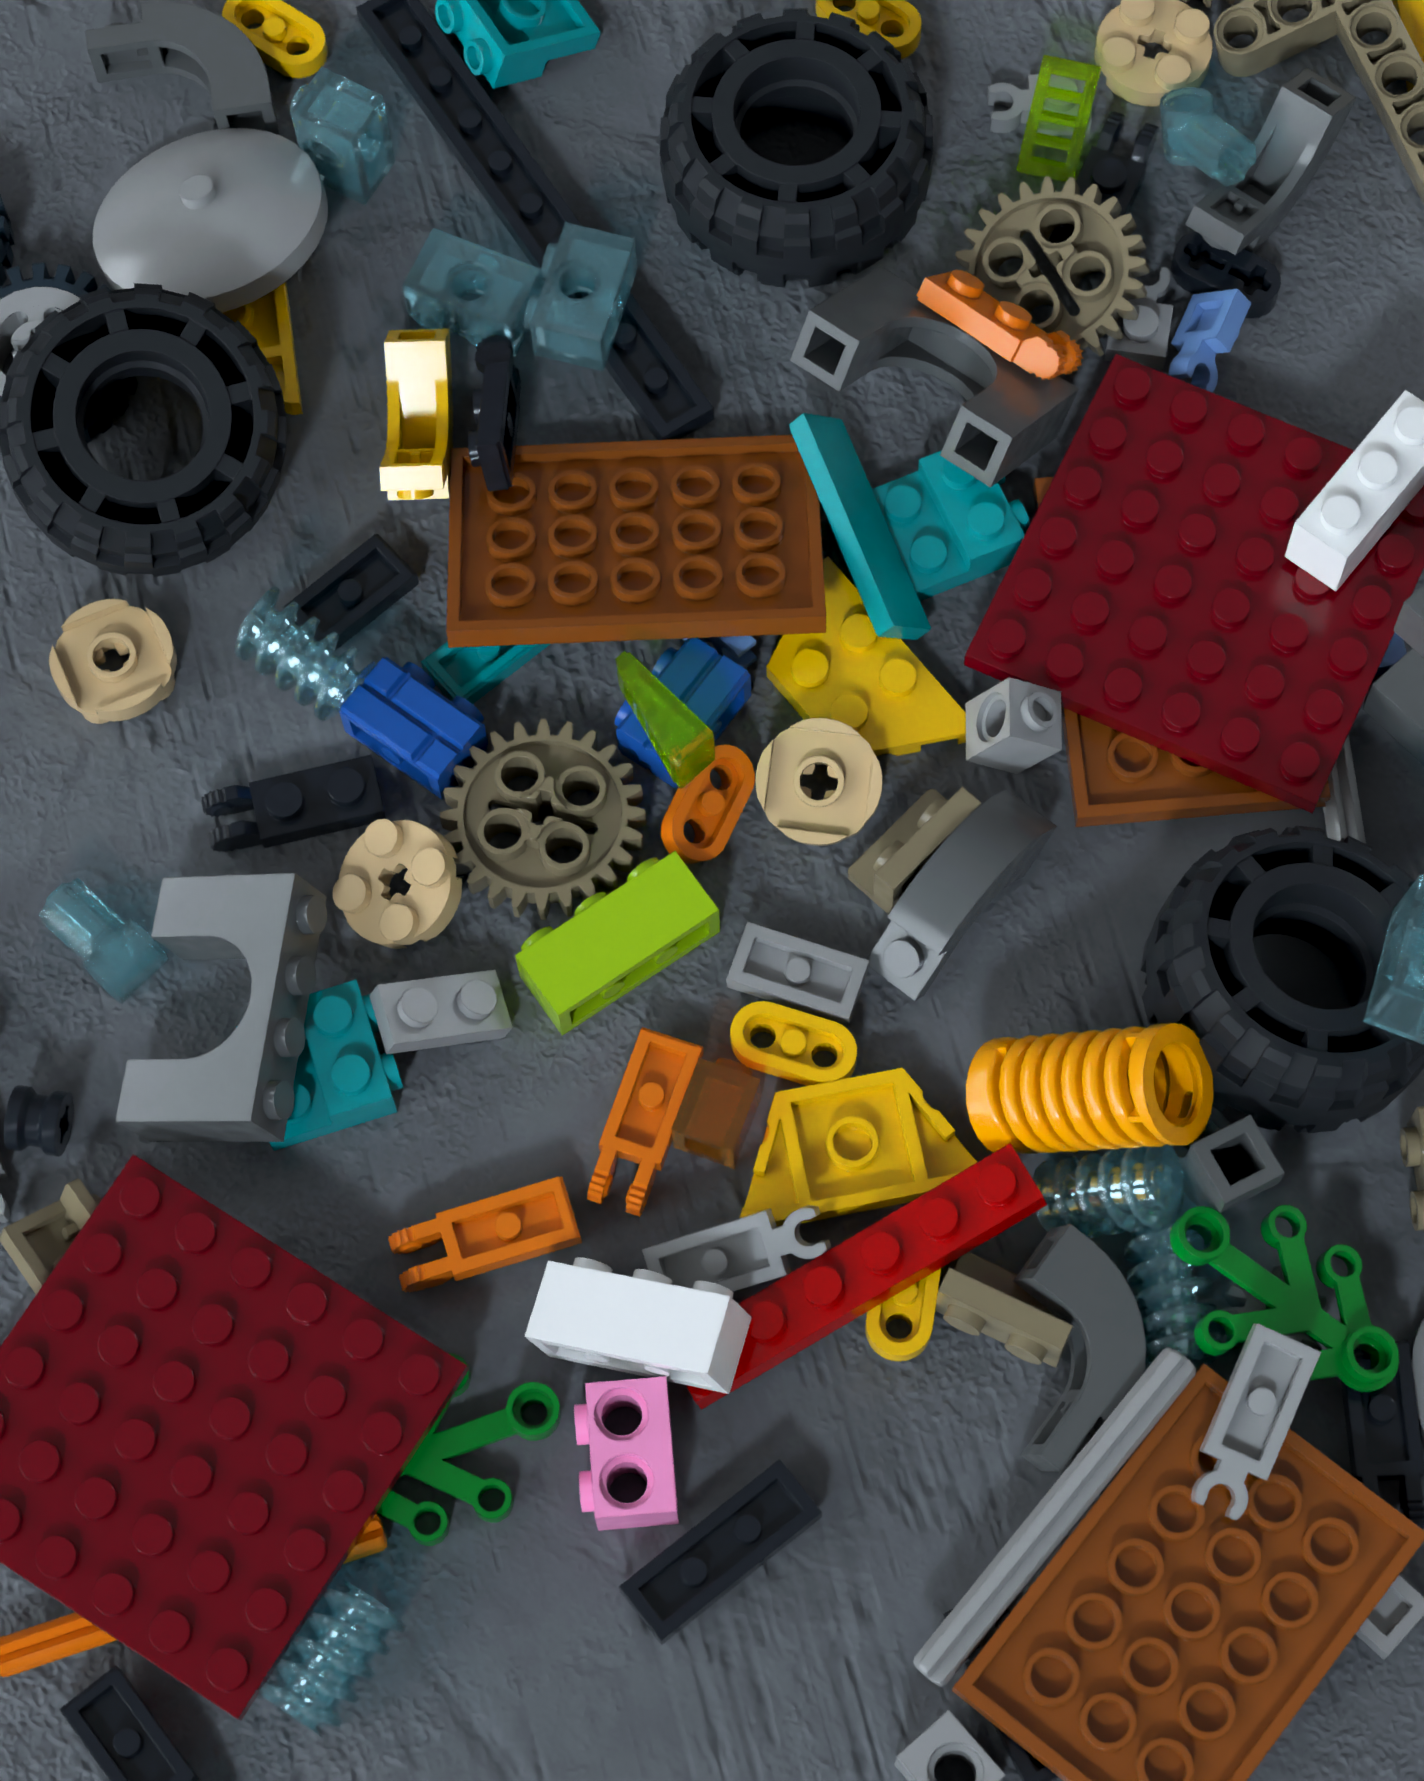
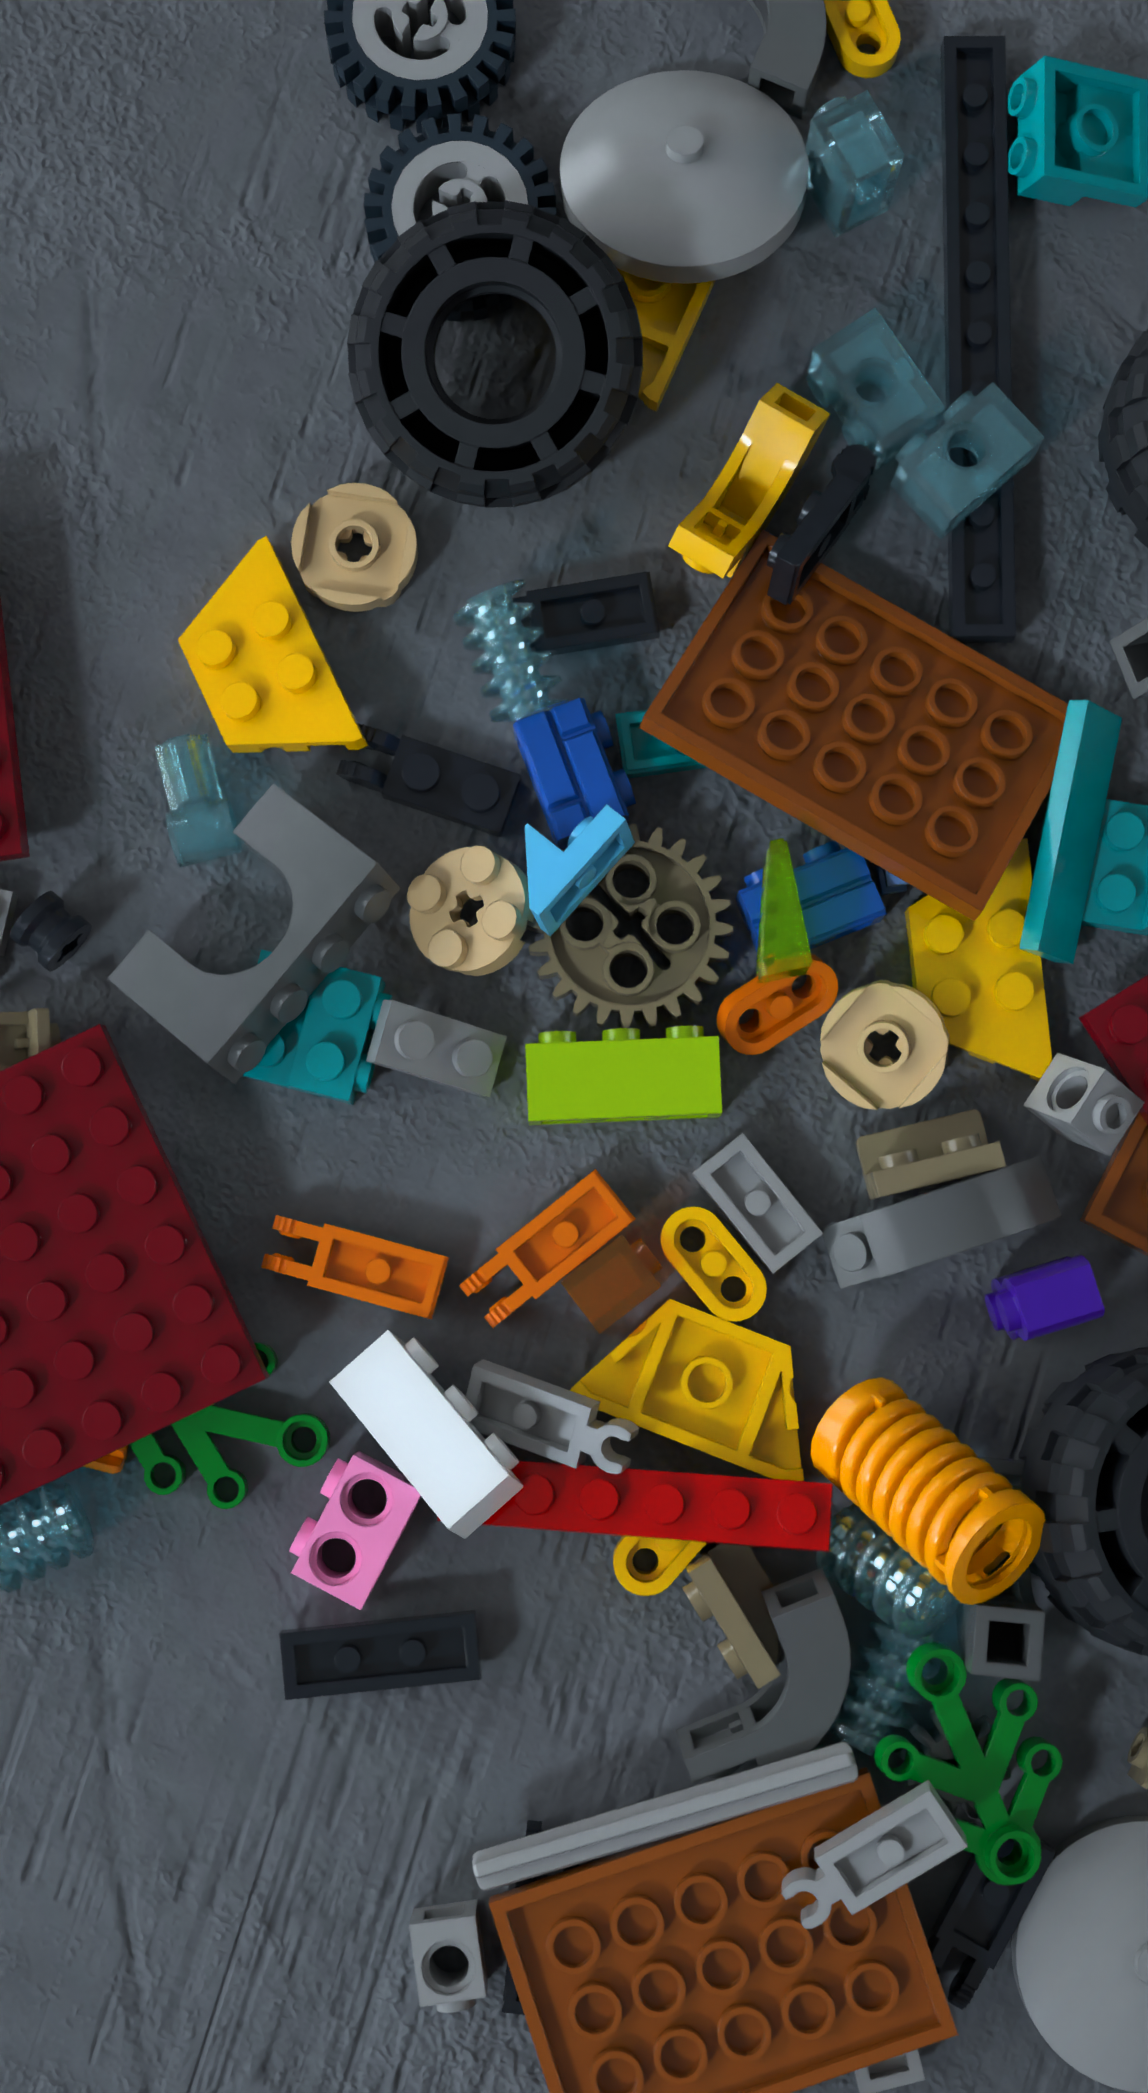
camera: 30 degrees right, 15 degrees up
(94, 795) = (265, 664): none -> yellow wing
(465, 792) = (564, 879): none -> medium azure slope
(1086, 892) = (1045, 1298): none -> dark purple brick

